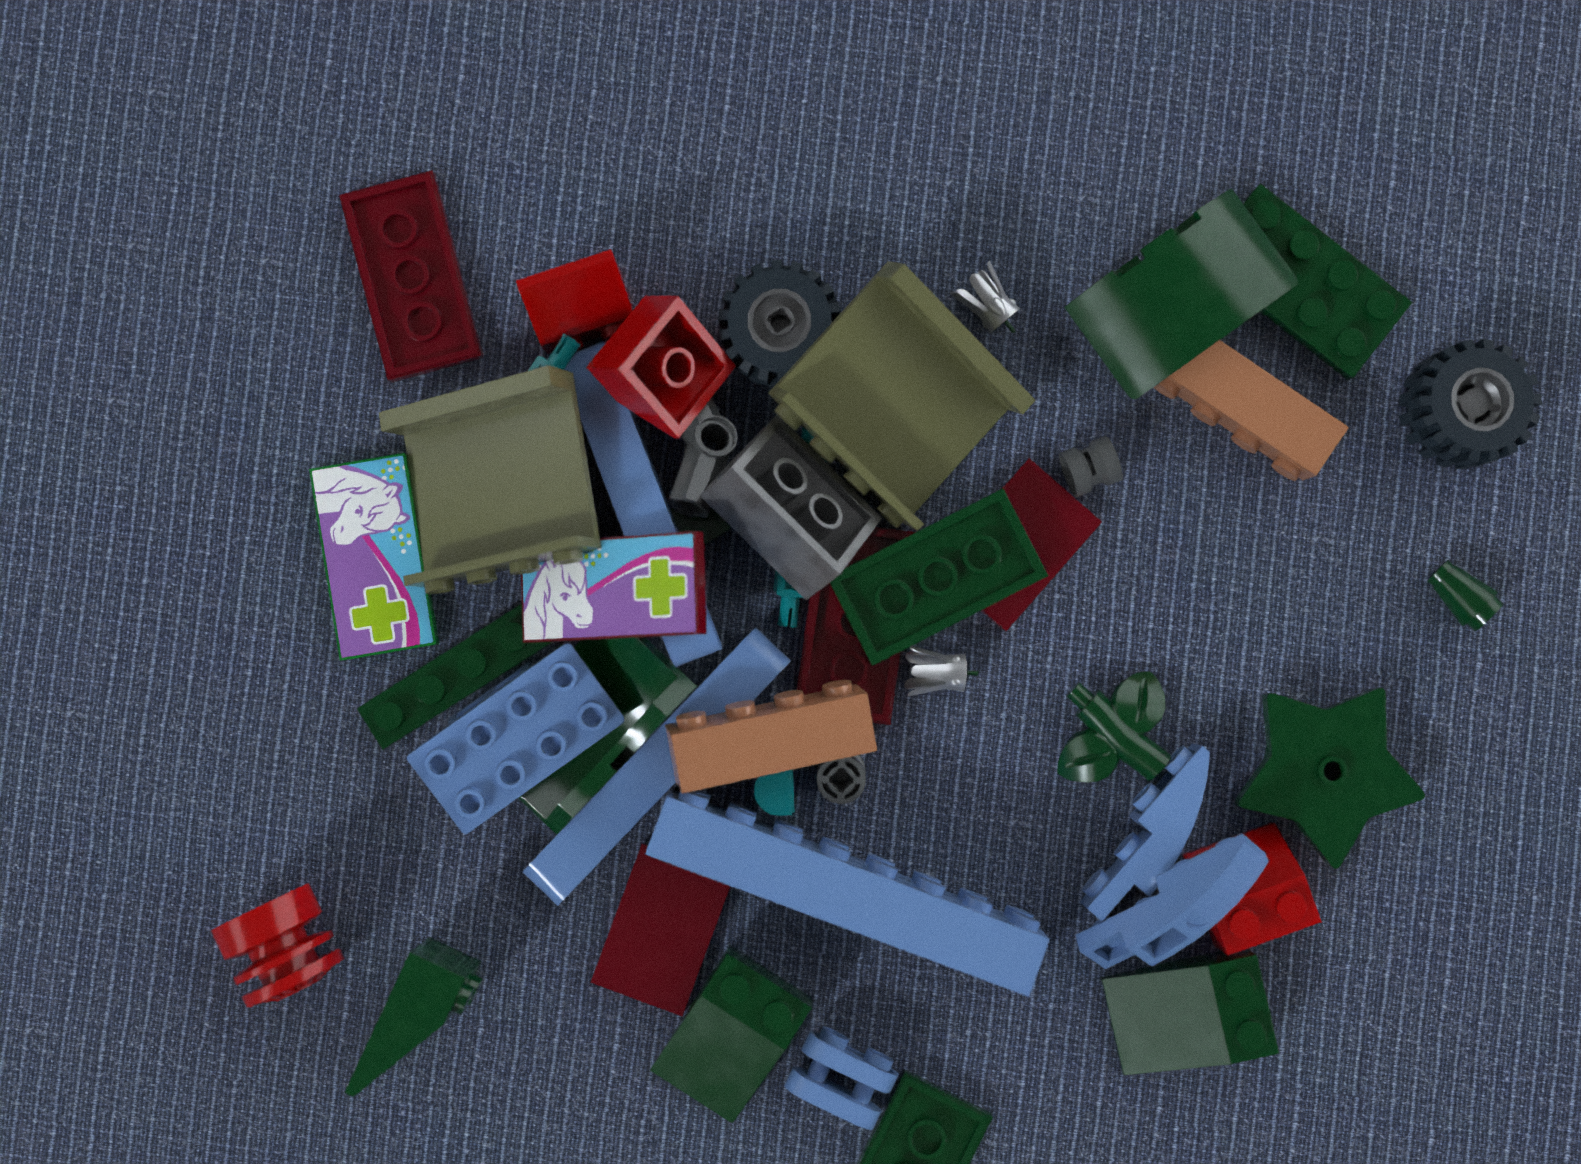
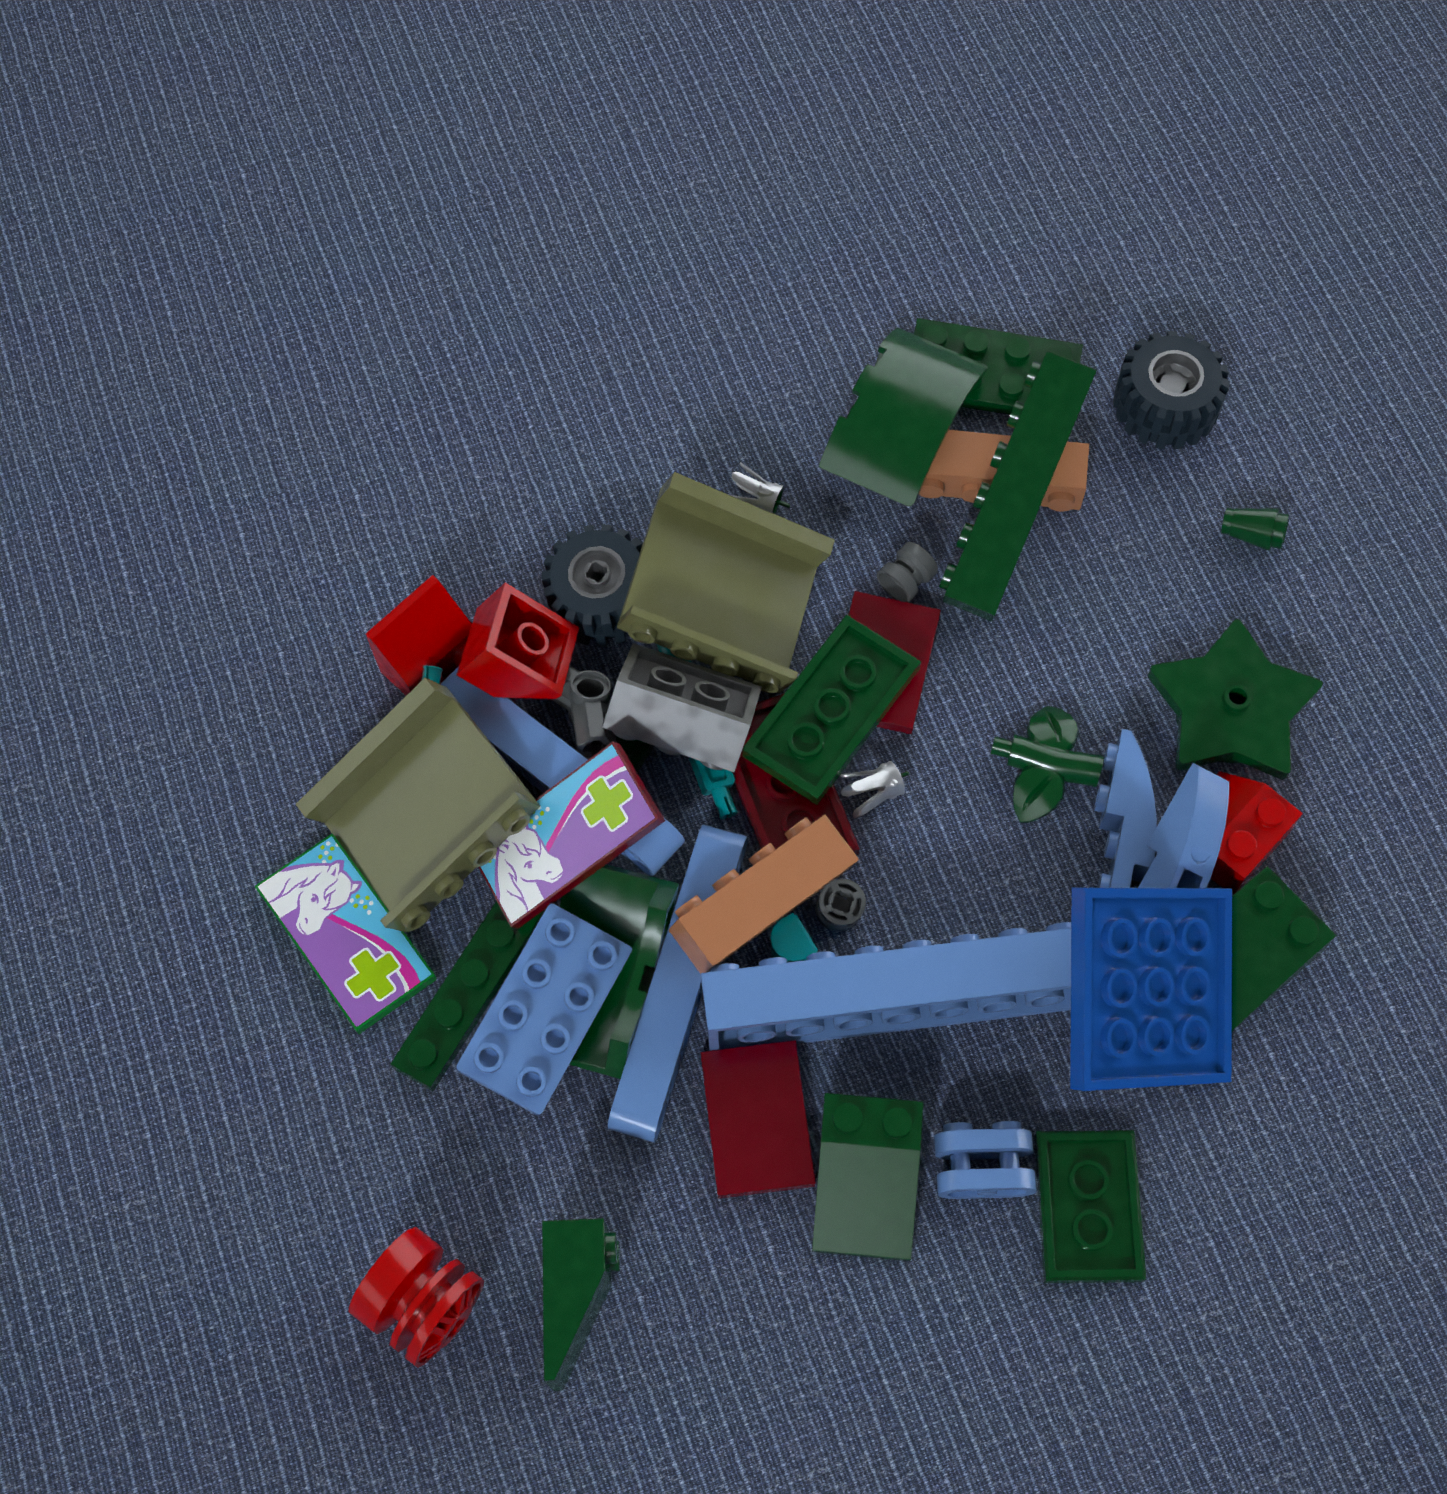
camera: 25 degrees left, 20 degrees down
(411, 276) = (272, 698): dark red tile -> none
(1075, 1020) = (1150, 987): none -> blue plate
(1250, 442) = (1019, 485): none -> dark green brick

